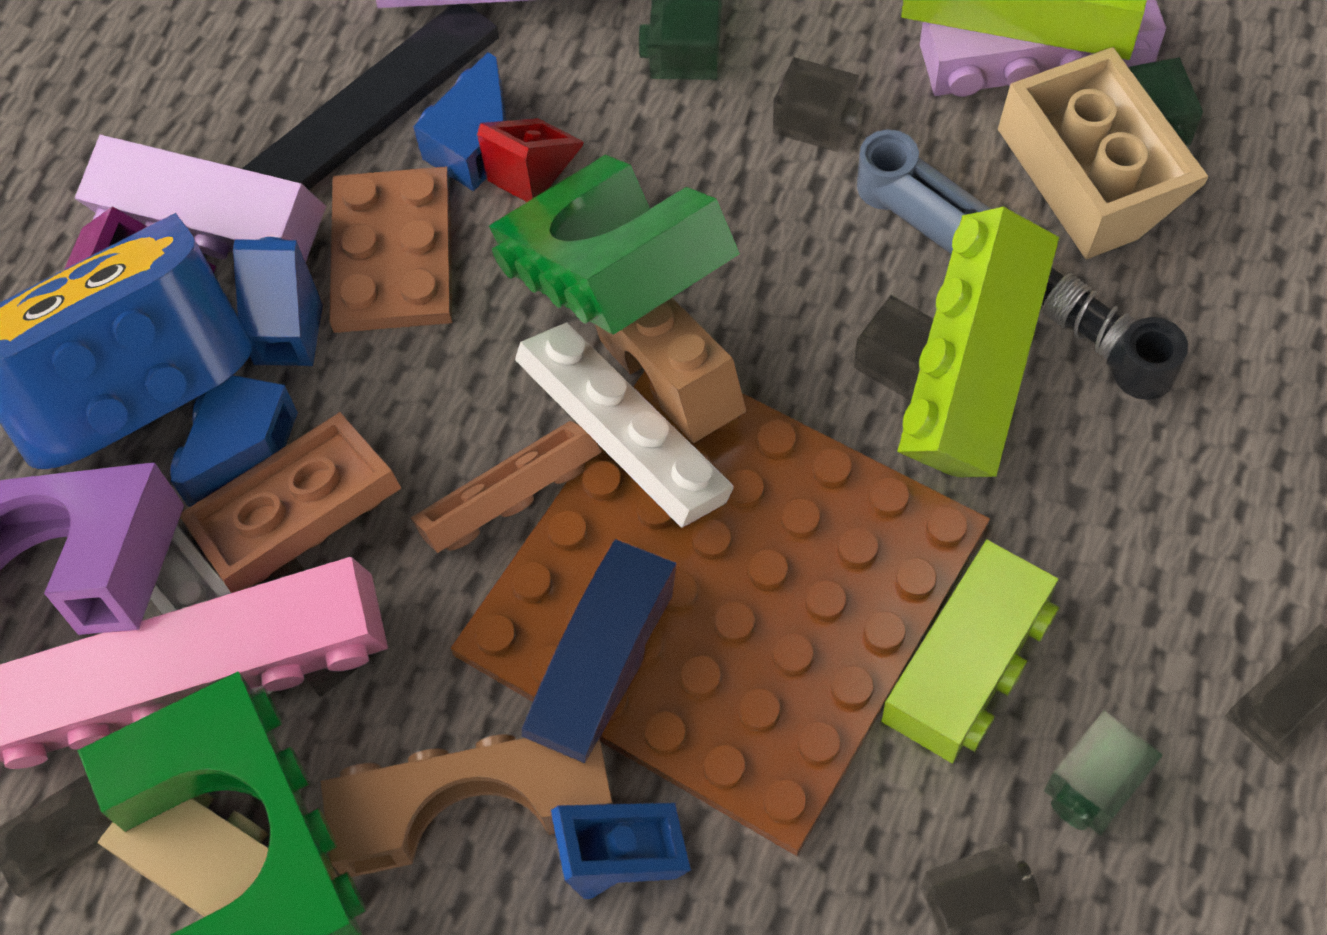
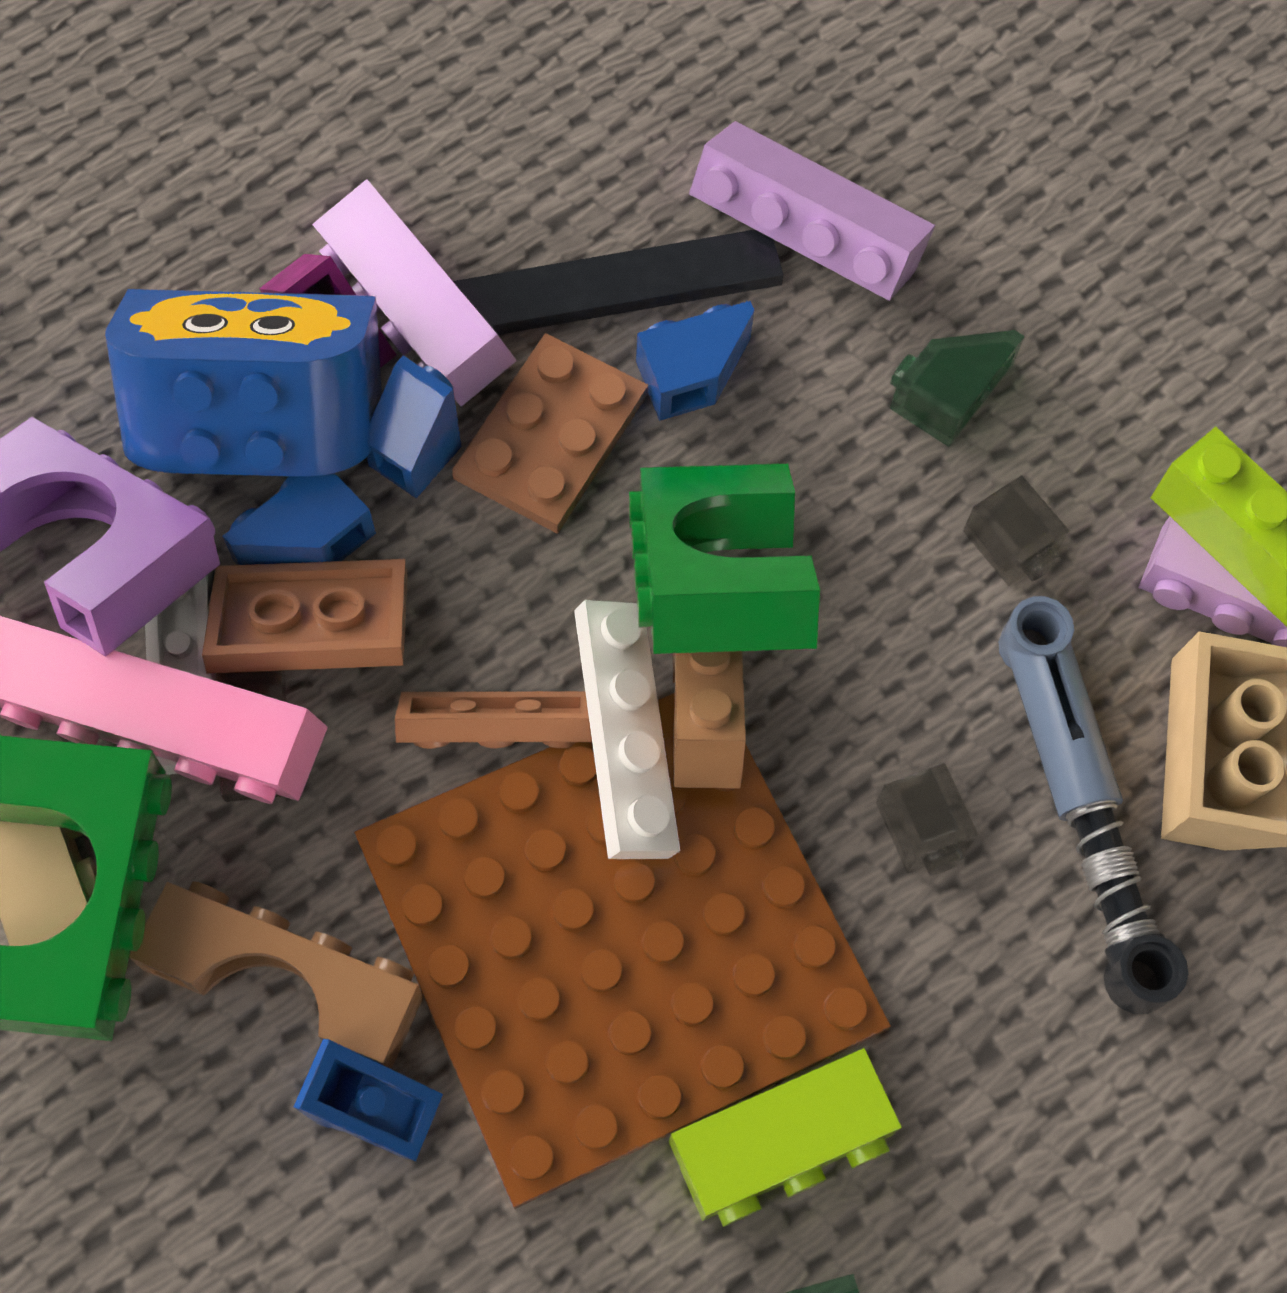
camera: 25 degrees right, 5 degrees up
(525, 155) = (725, 416): red slope -> none
(600, 650) = (461, 925): dark blue slope -> none
(978, 344) = (988, 862): lime brick -> none

